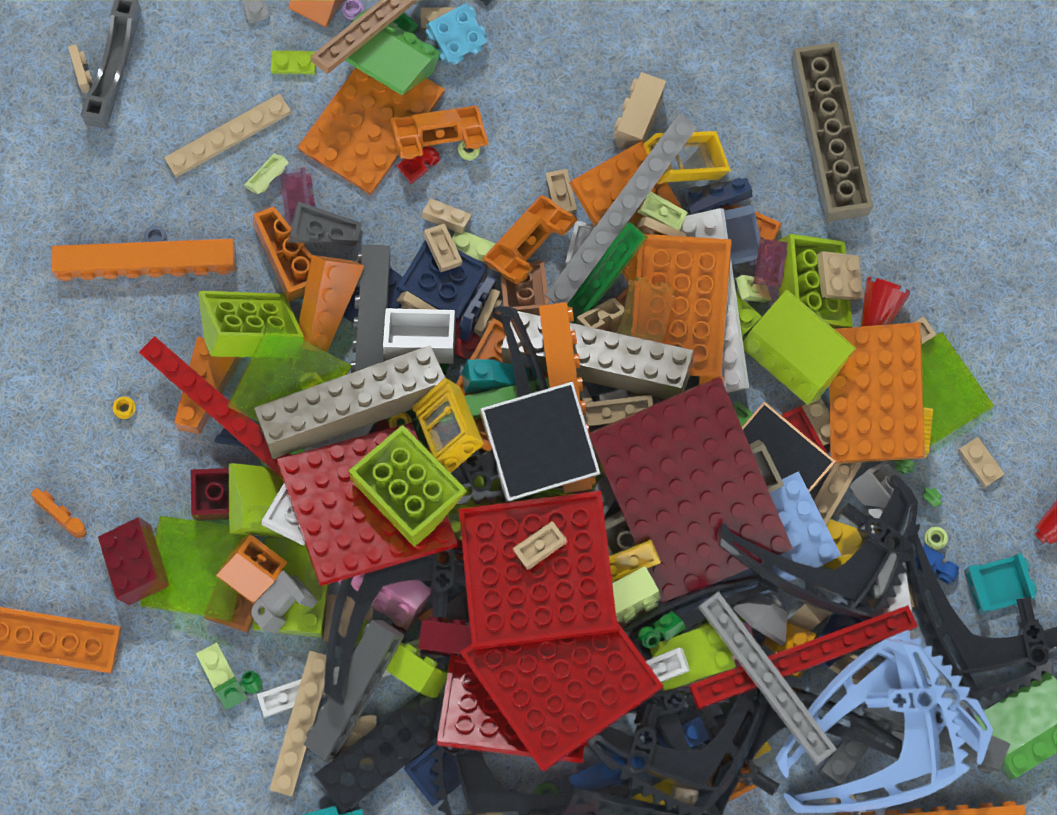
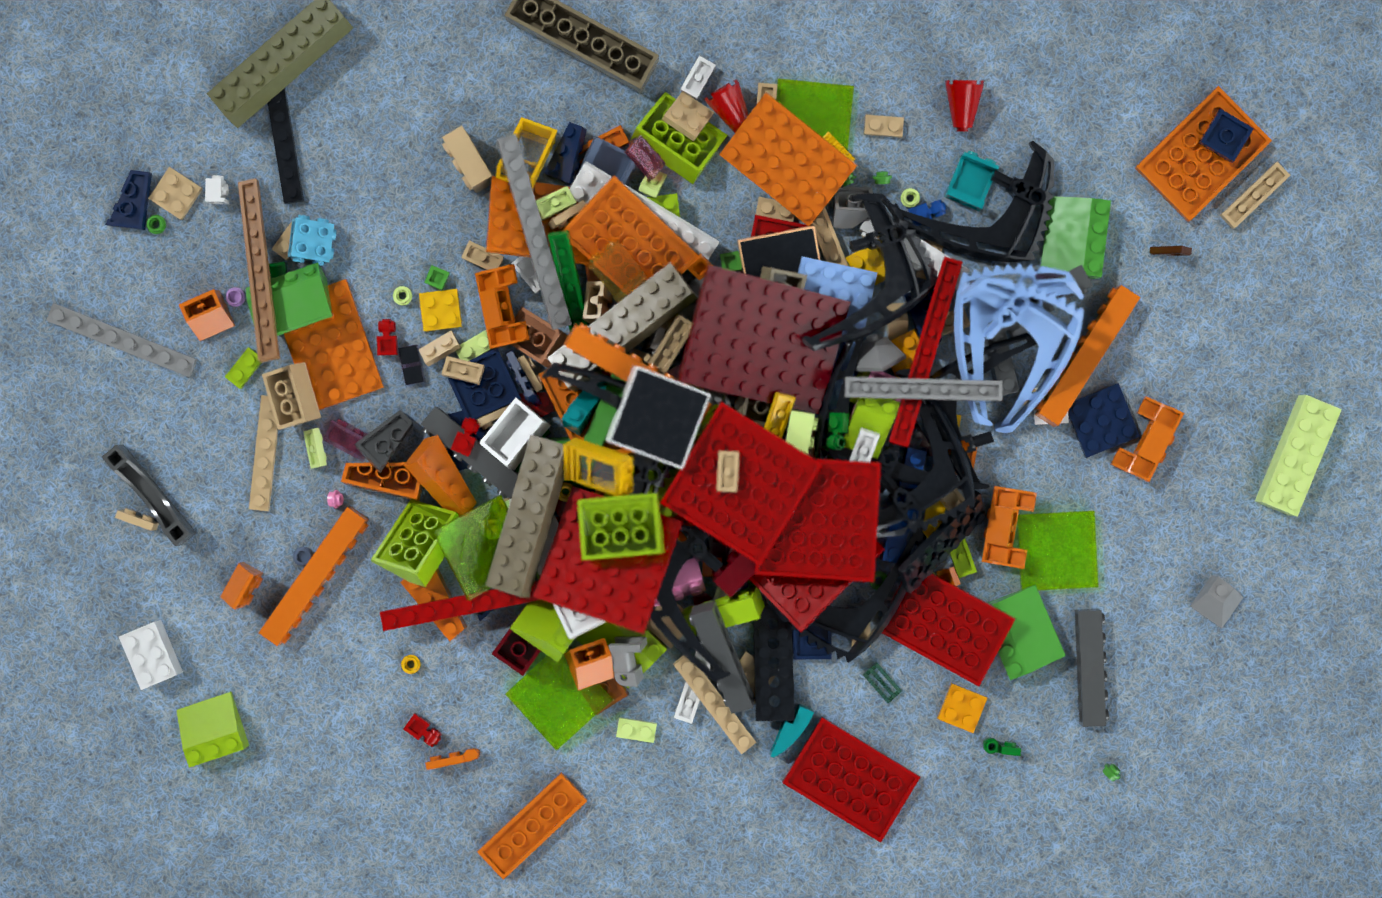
camera: 50 degrees left, 15 degrees up
(66, 459) = (418, 727): none -> red plate
(86, 201) = (241, 586): none -> orange slope
(133, 561) = (525, 735): dark red brick -> none
(231, 225) = (335, 499): none -> bright pink plate
(232, 691) = (661, 730): green plate -> none
(299, 116) = (291, 395): none -> tan brick
(376, 295) = (465, 442): none -> red plate
(411, 203) = (411, 365): none -> black tile
(437, 128) = (372, 307): orange bracket -> none
(482, 192) = (440, 310): none -> yellow plate
(509, 166) = (437, 277): none -> bright green plate
(798, 347) = (718, 187): lime slope -> none
(882, 260) = (698, 77): none -> white plate

